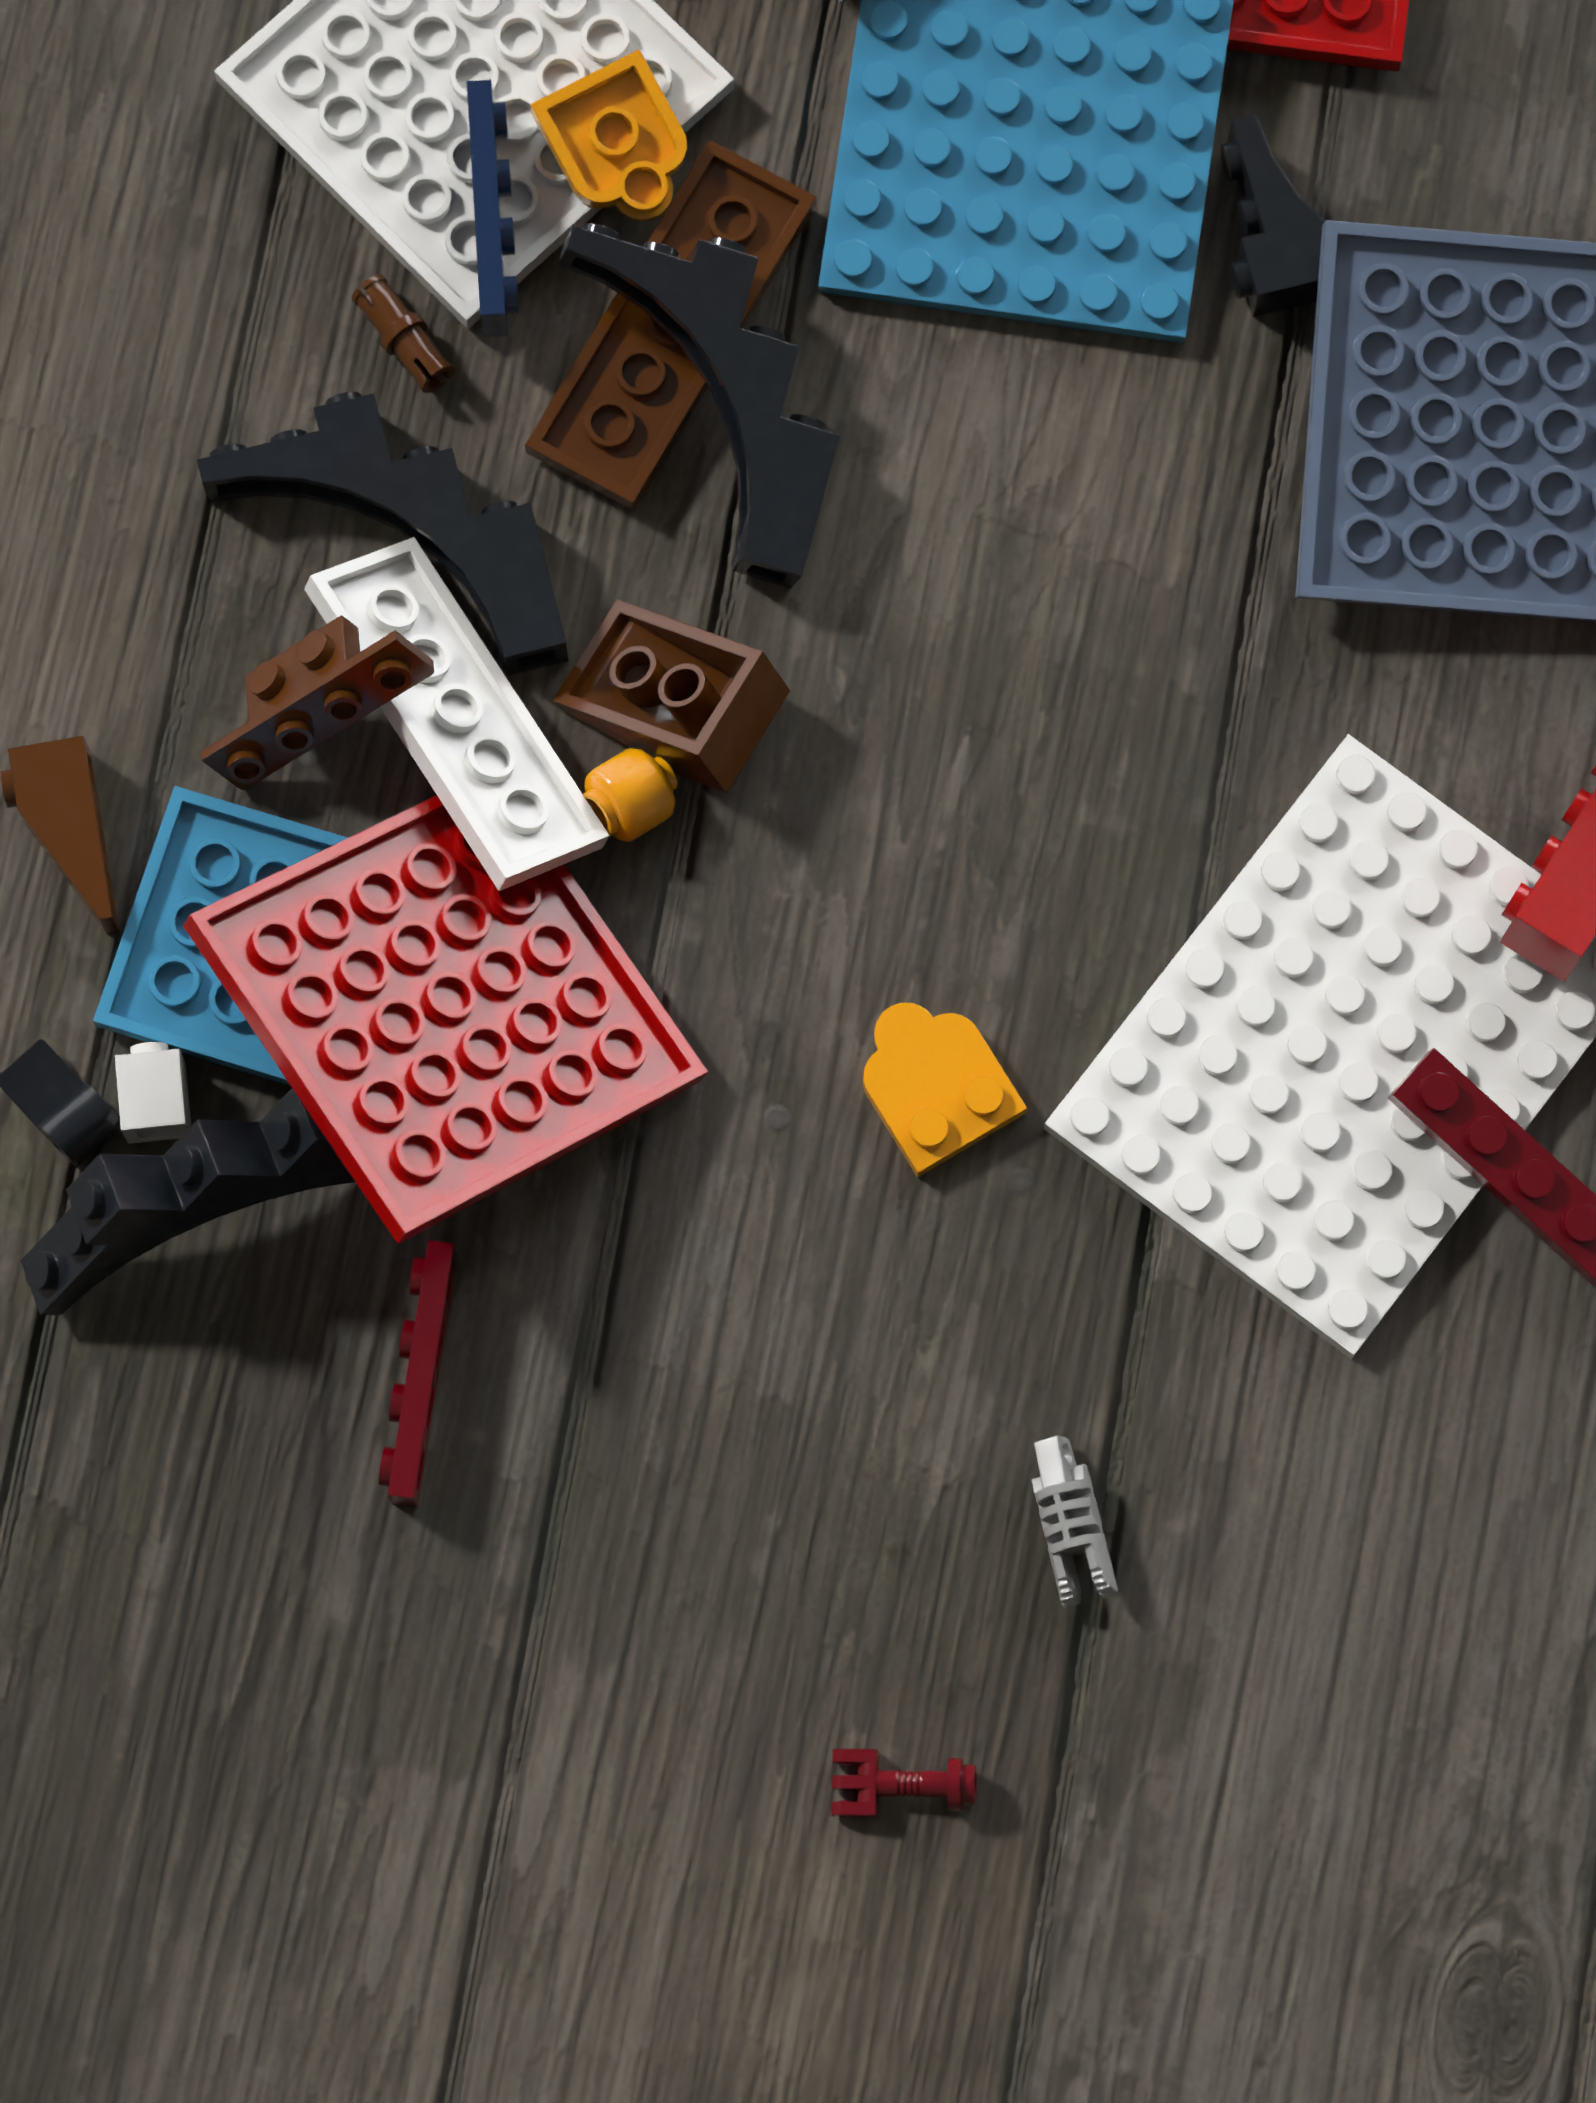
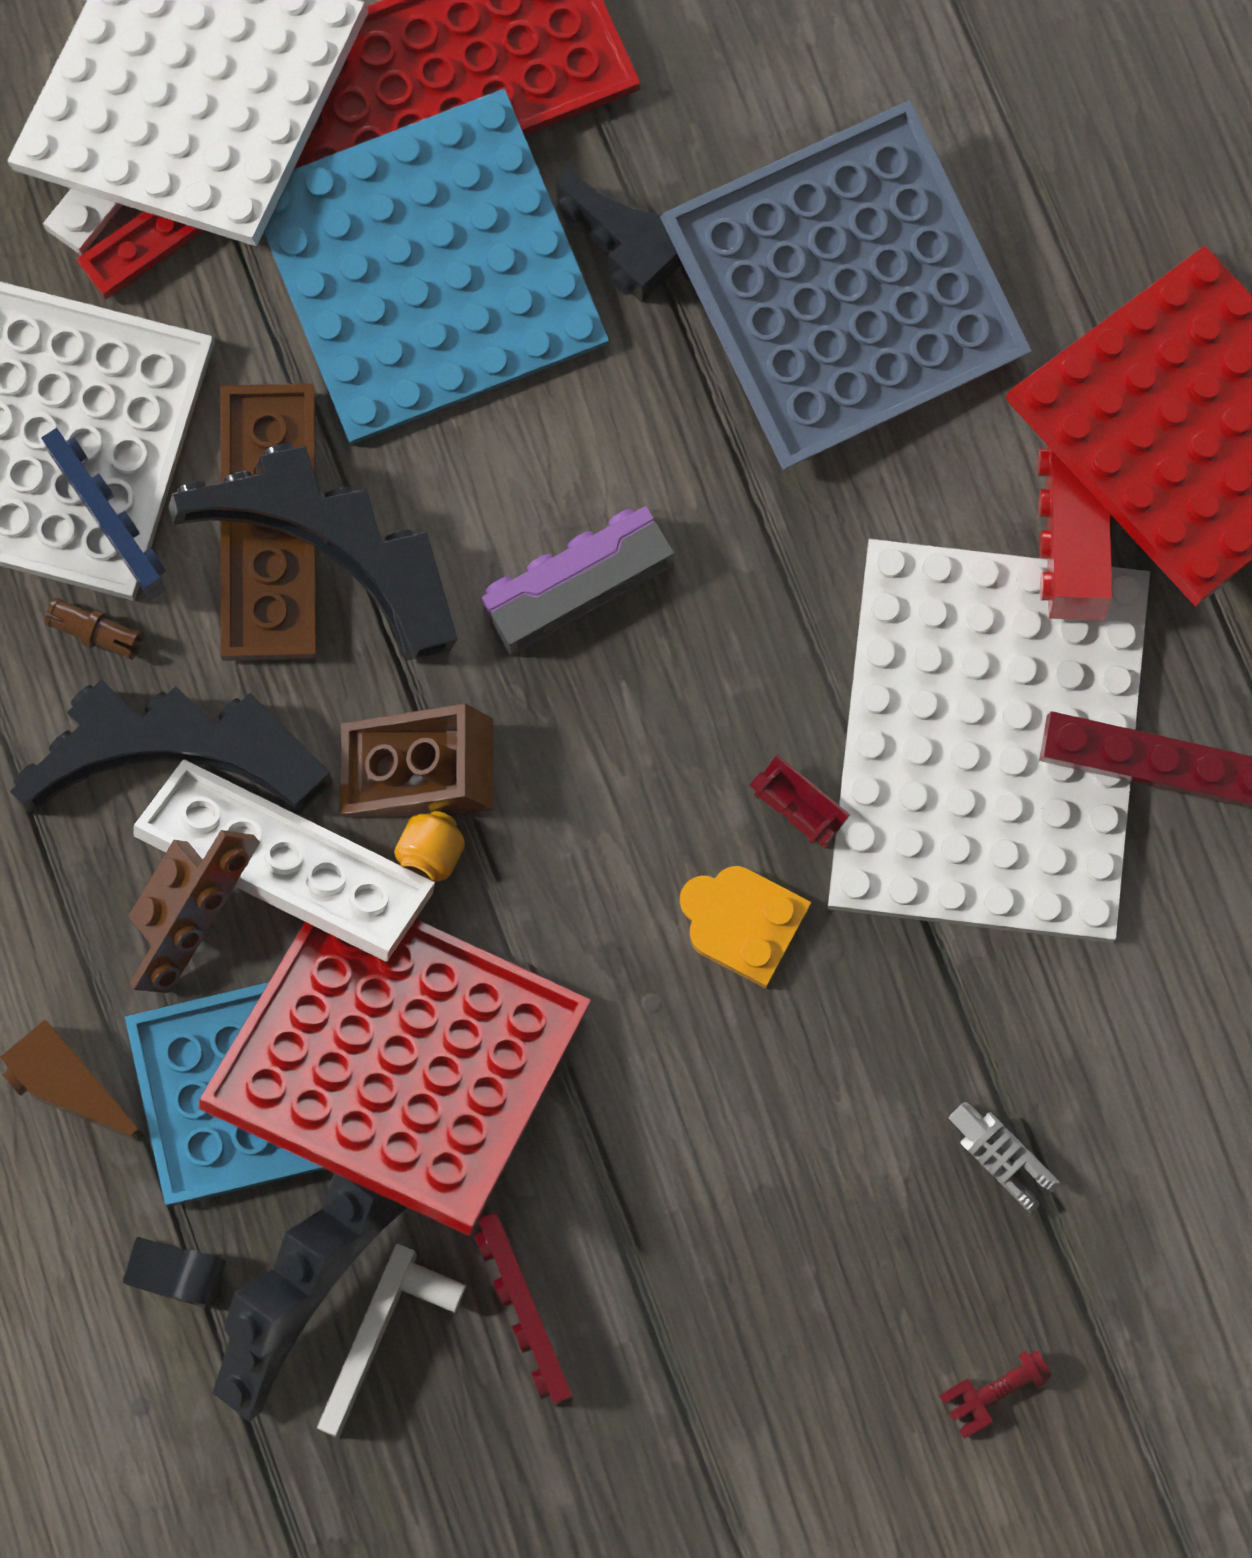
camera: 30 degrees left, 0 degrees up
(152, 1093) = (234, 1229): white brick -> none
(302, 1252) = (398, 1276): none -> white piece
(615, 138) = (159, 419): light orange plate -> none
(982, 589) = (577, 580): none -> dark grey piece
(1084, 985) = (799, 801): none -> dark red hinge

